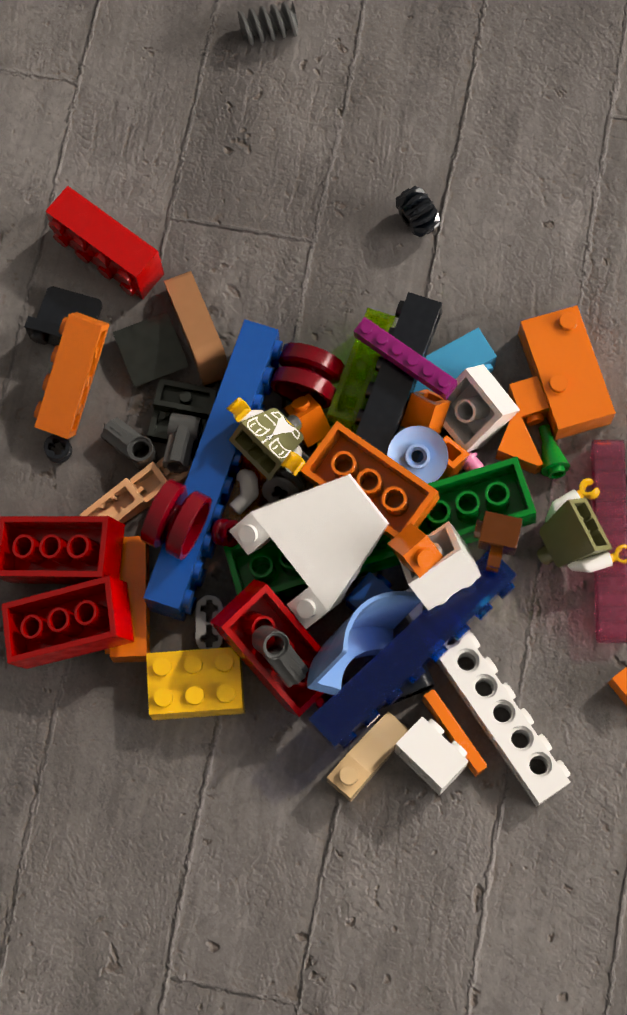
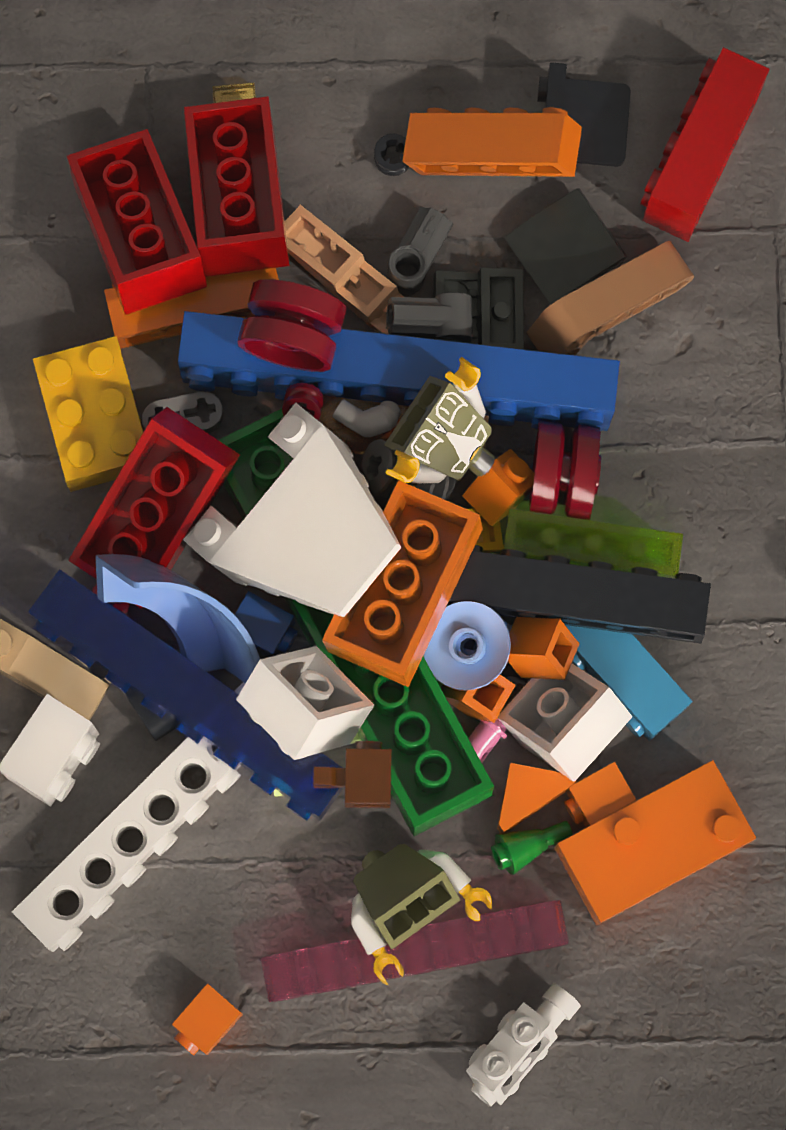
camera: 70 degrees right, 5 degrees up
(280, 655) = (133, 509): dark grey piece -> none
(405, 358) = (604, 597): magenta piece -> none
(415, 550) = (309, 659): orange brick -> none
(454, 731) = (92, 780): orange tile -> none

